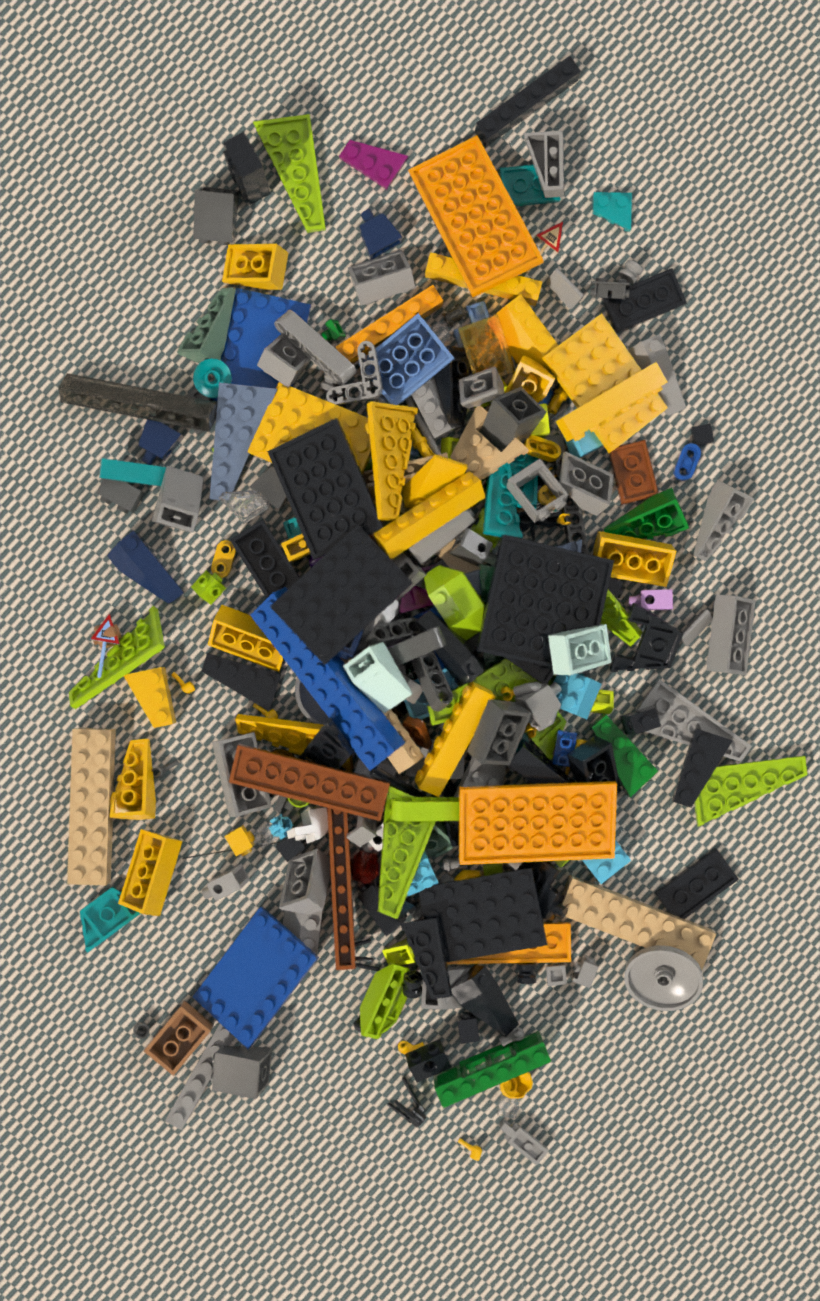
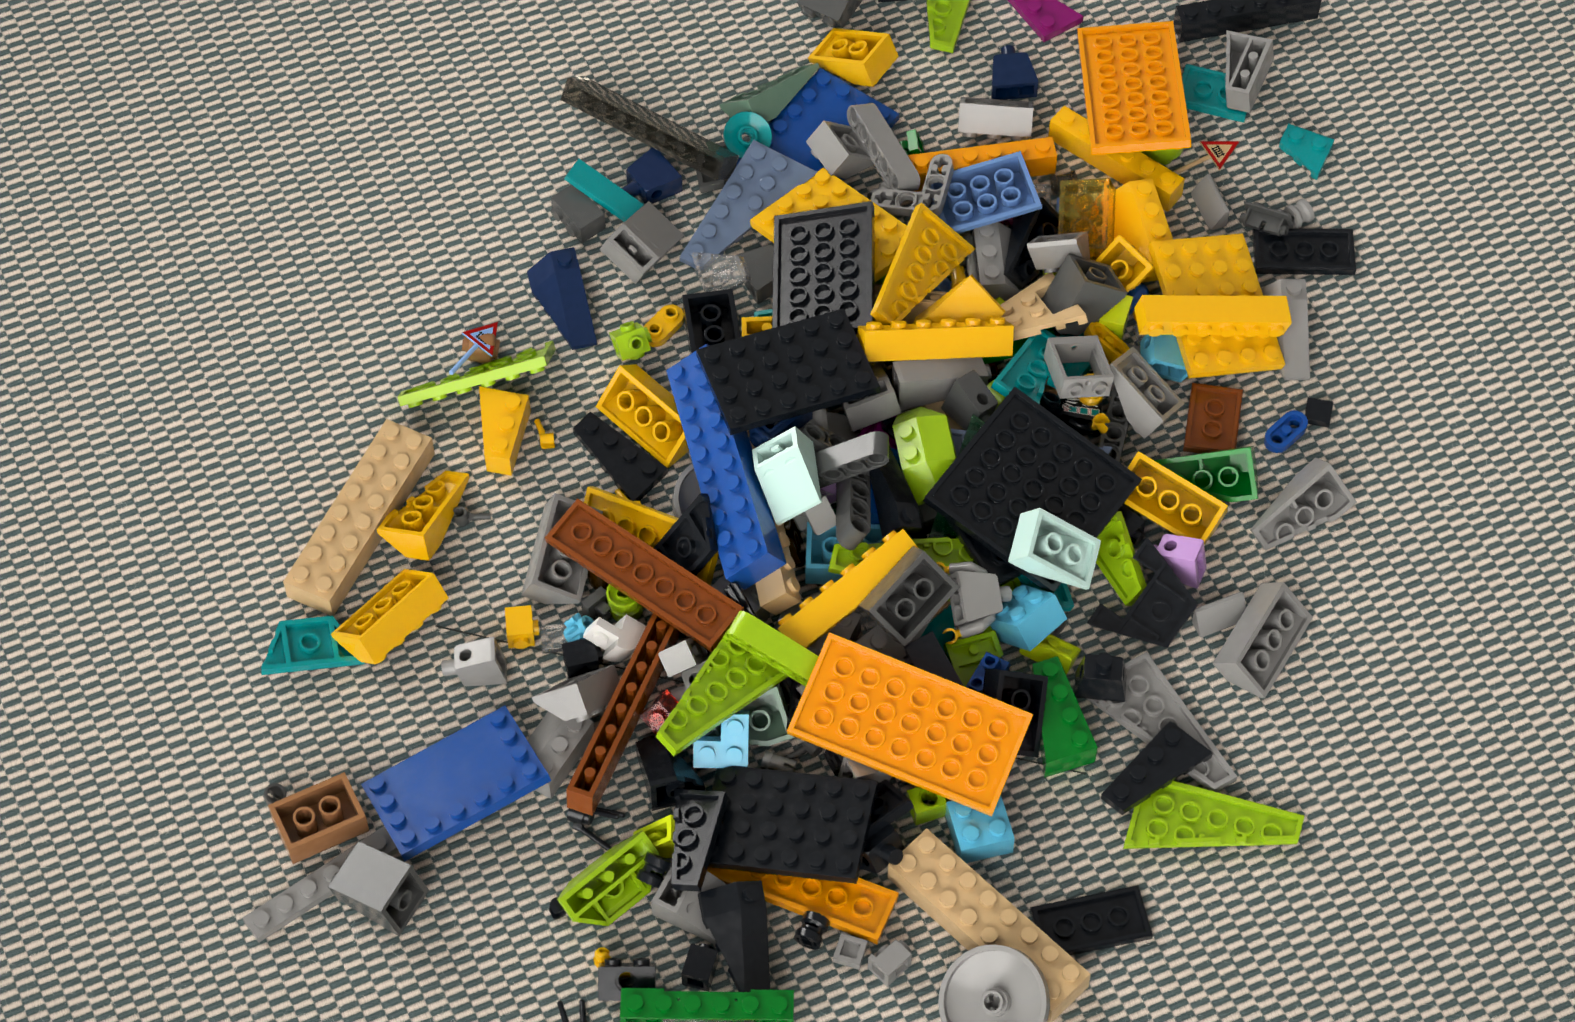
camera: 20 degrees right, 30 degrees down
(418, 732) = (807, 573): dark orange wing -> none

